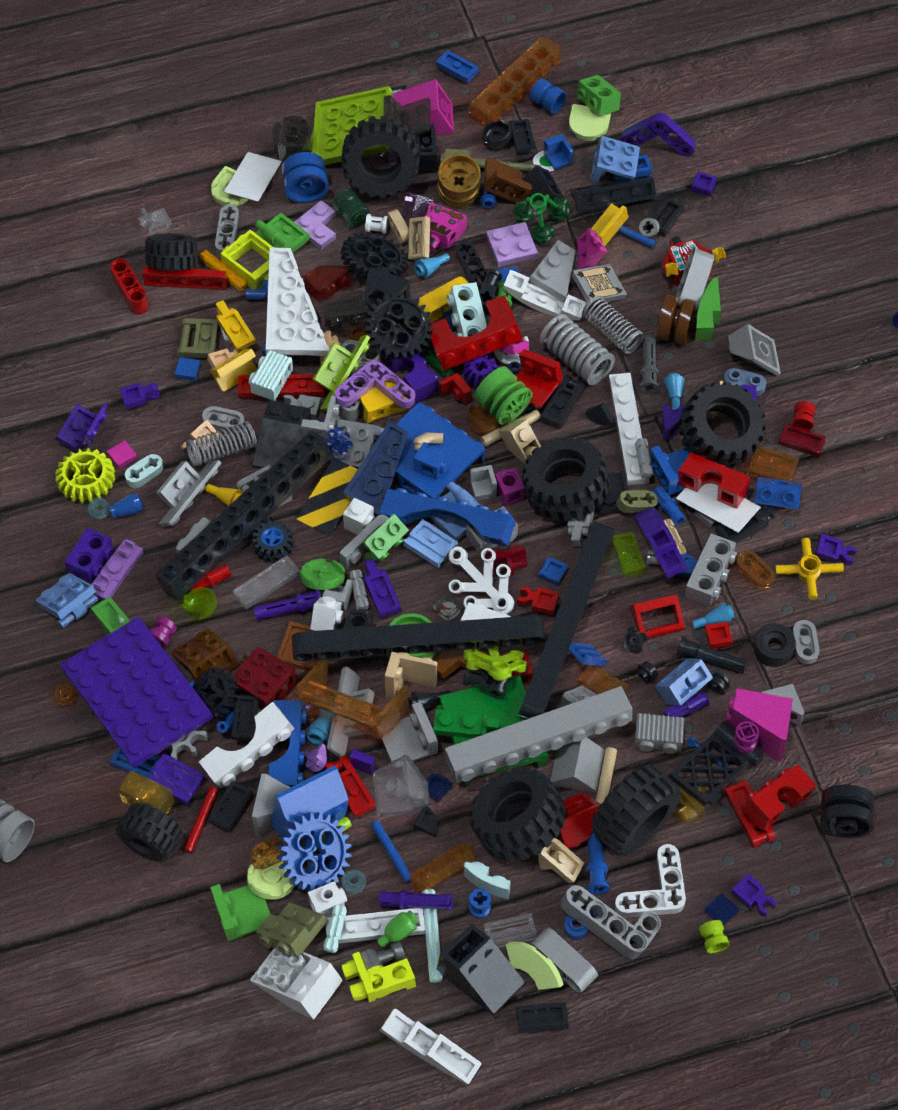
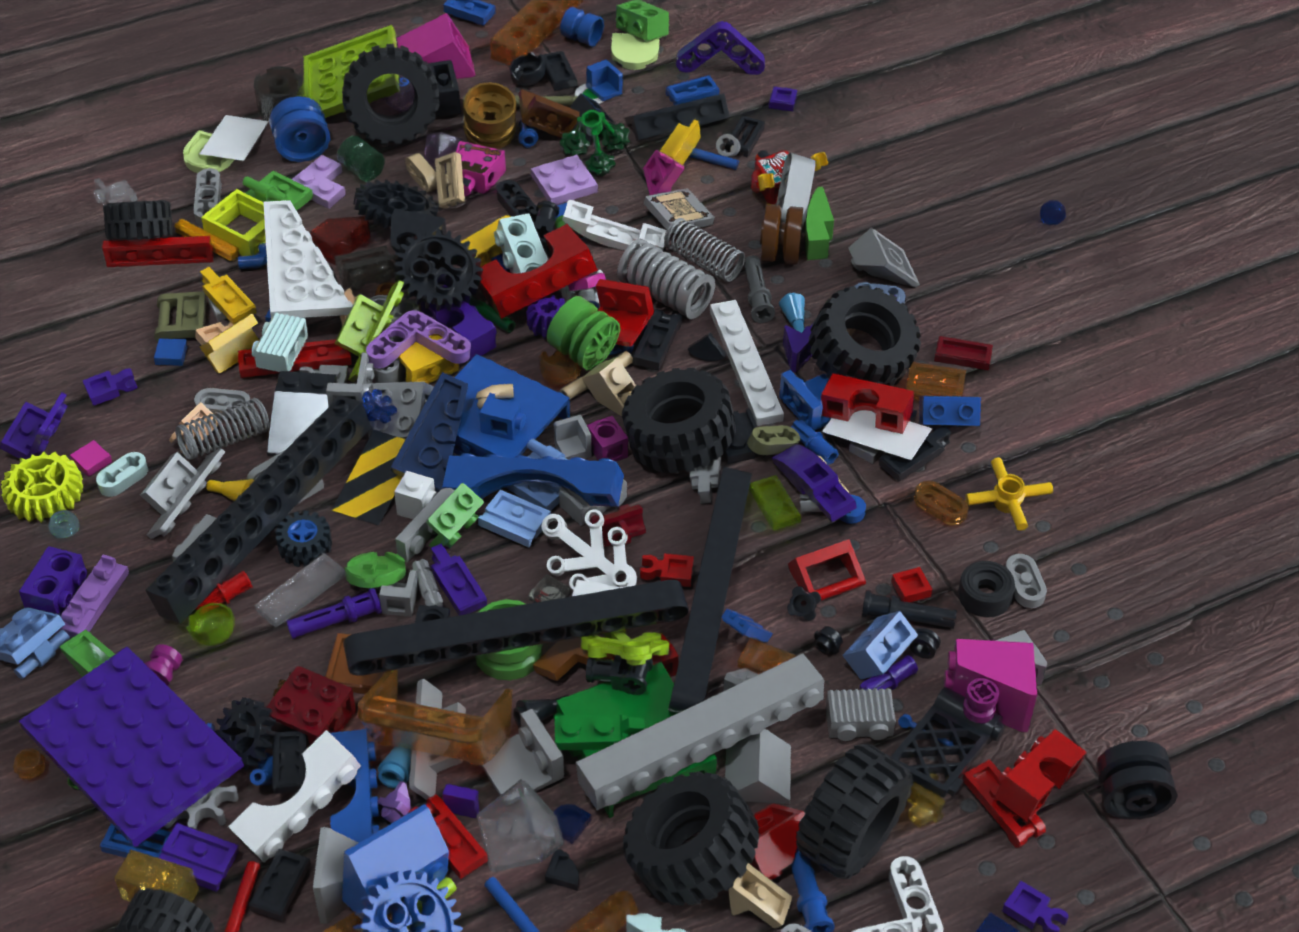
camera: 10 degrees left, 10 degrees down
(127, 506) = (102, 517): blue cone -> none
(129, 286) = (86, 267): red beam -> none
(205, 652) = (221, 685): reddish brown bracket -> none
(326, 614) = (387, 612): white brick -> none
(376, 224) = (394, 172): white bush -> none
(410, 669) = (512, 670): tan bracket -> none
(414, 115) = (431, 48): clear smoke bracket -> none
(427, 266) = (463, 211): dark azure cone -> none
(458, 387) = (523, 336): red bracket -> none
(553, 571) = (680, 534): blue tile -> none
(555, 271) = (622, 201): light grey wing -> none
(606, 774) = (799, 792): tan piece -> none
(615, 158) = (673, 78): medium blue bracket -> none
(644, 458) = (773, 388): light grey axle -> none
(708, 561) = (885, 509): light grey brick -> none
(720, 614) = (908, 559): dark azure cone -> none
(803, 415) = (960, 323): red wheel -> none
(832, 550) = (1033, 470): dark purple plate -> none

